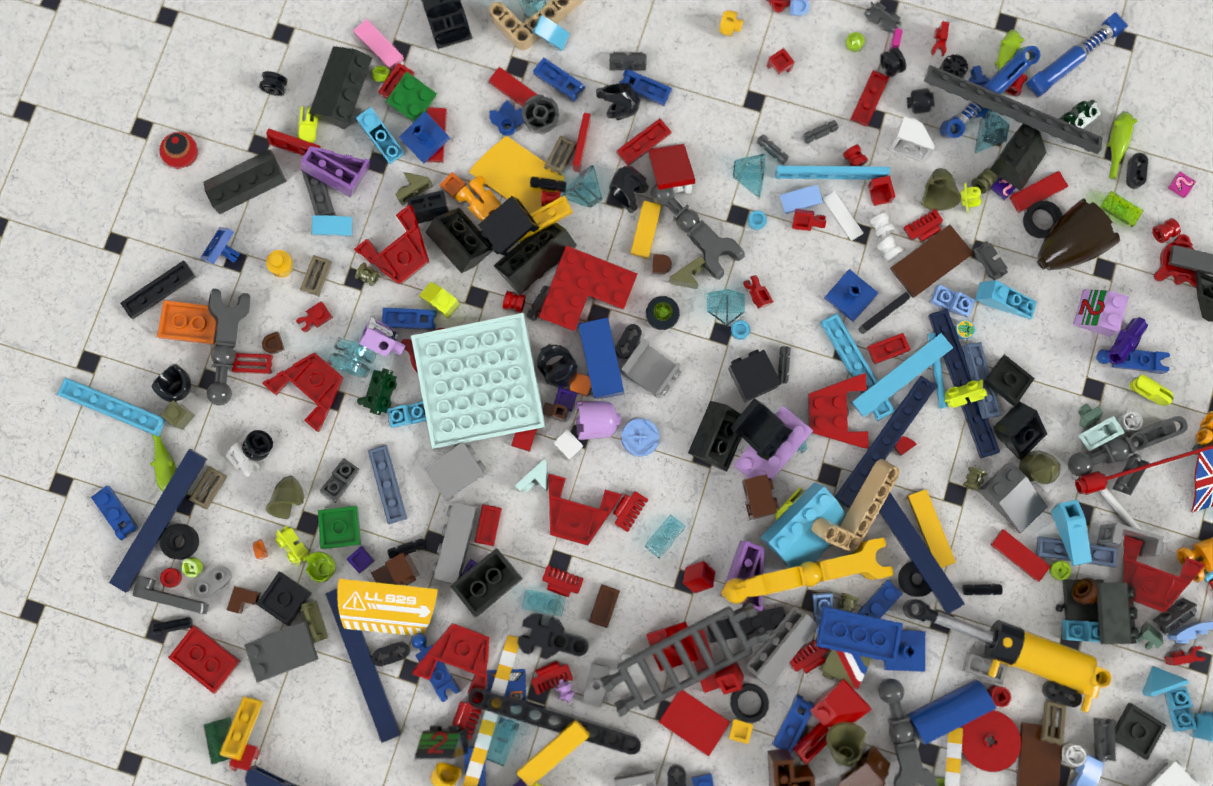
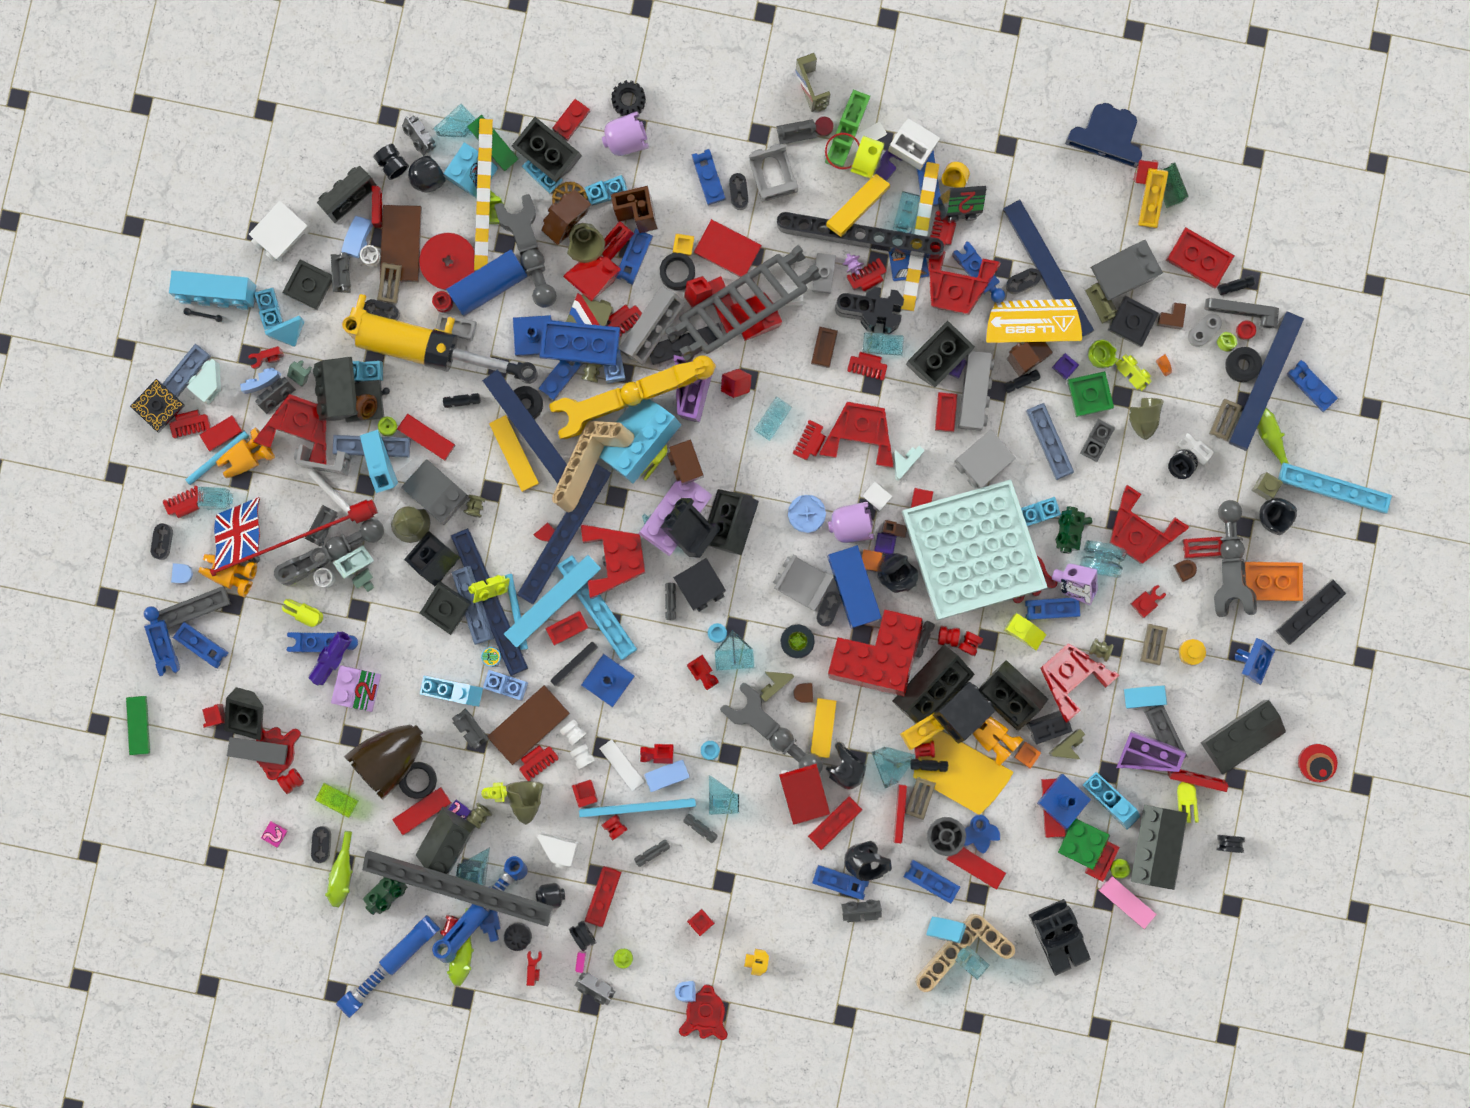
camera: 170 degrees right, 5 degrees up
(493, 292) = (972, 639): none -> red wheel

